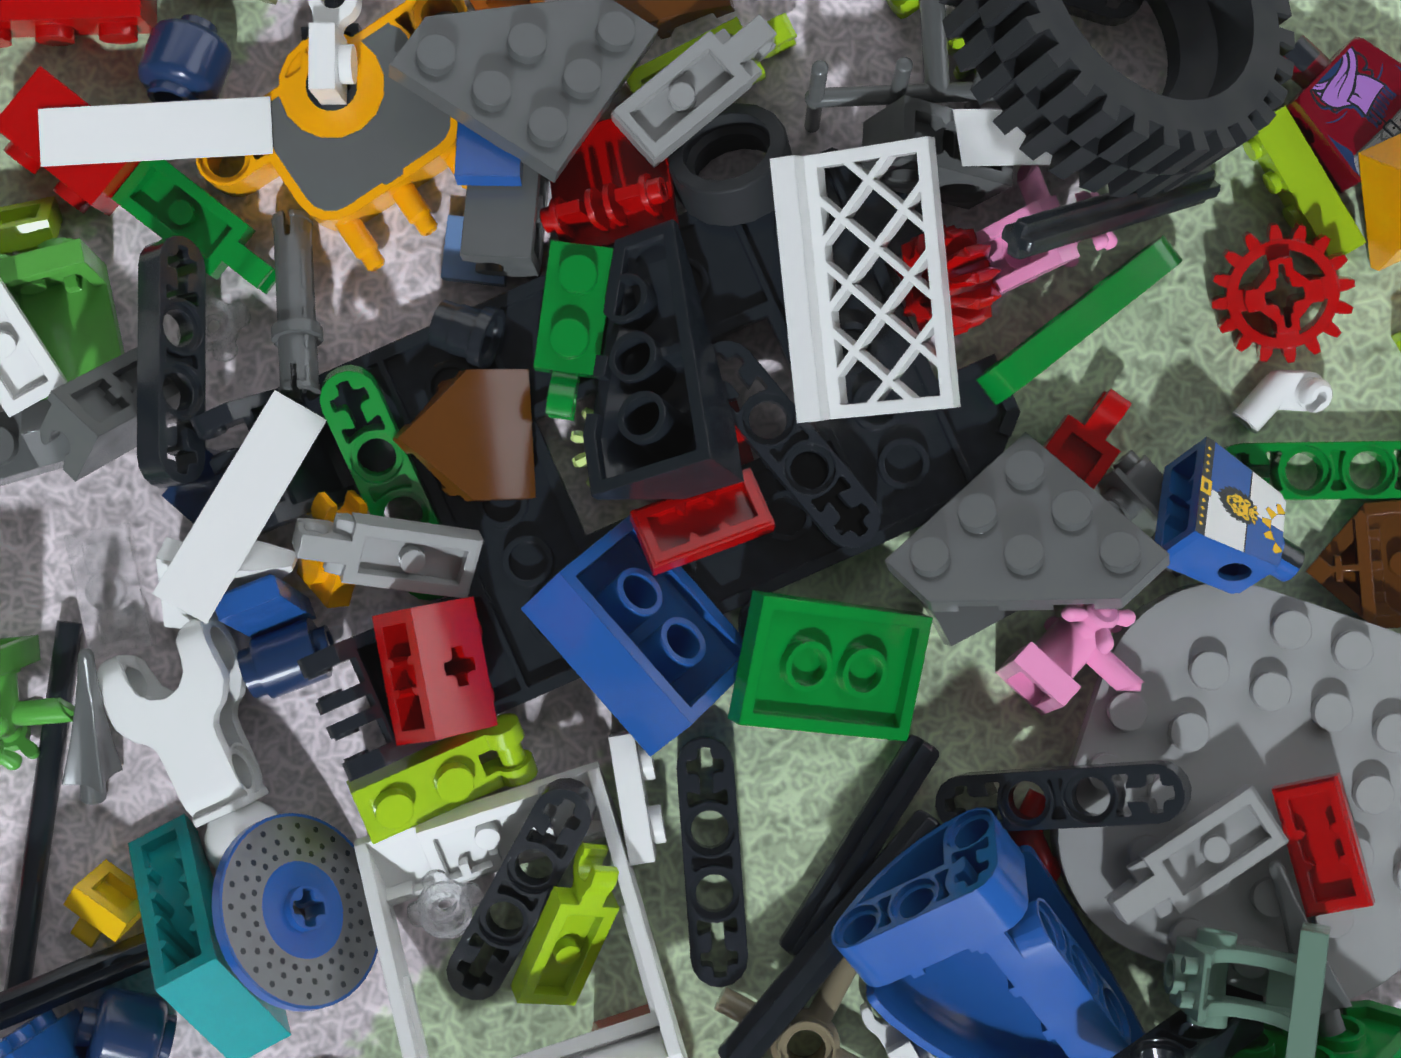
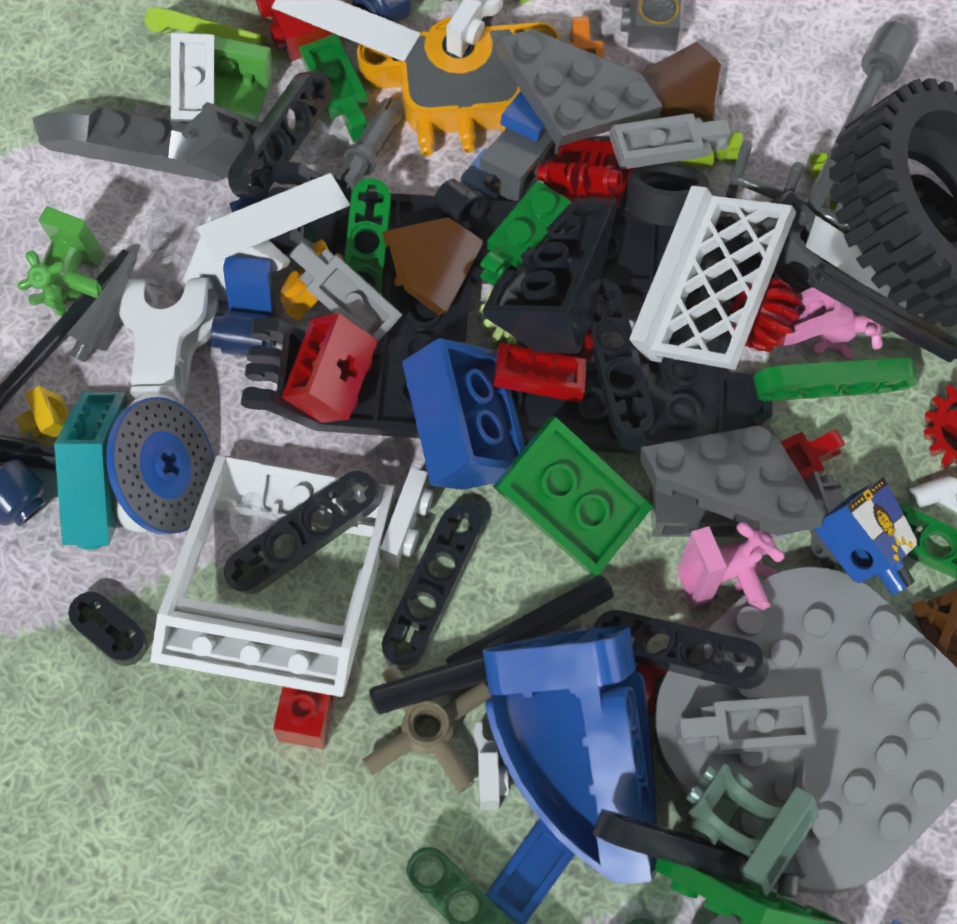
camera: 25 degrees right, 20 degrees down
(442, 778) = (293, 444): lime plate -> none
(569, 933) = (317, 571): lime plate -> none
(1323, 845) = (840, 763): red plate -> none

